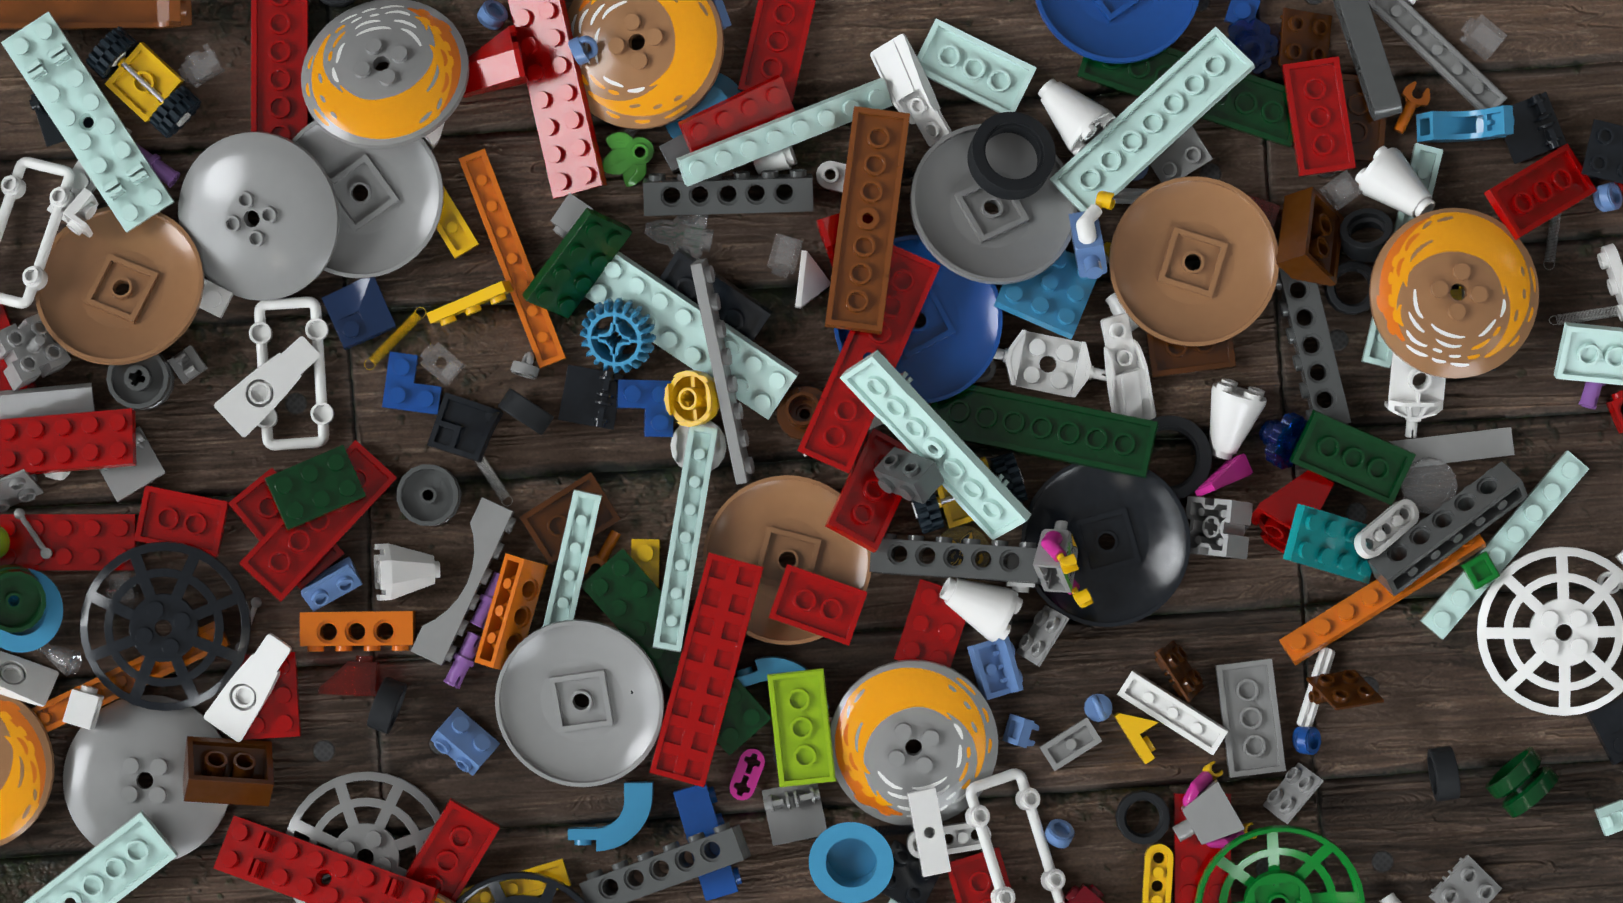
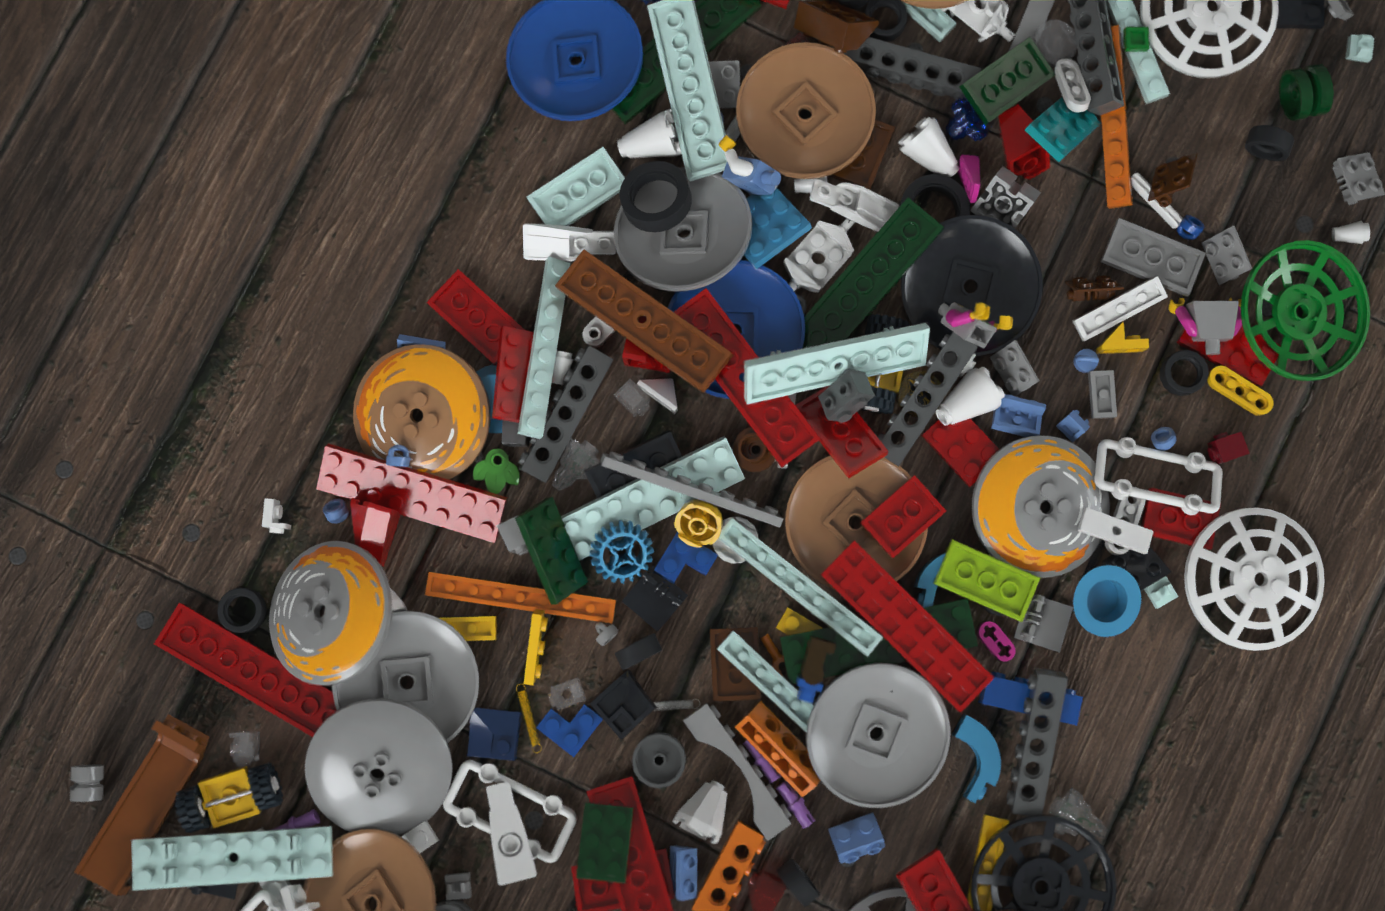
camera: 60 degrees left, 5 degrees down
(606, 597) = (812, 666): none -> dark brown hips

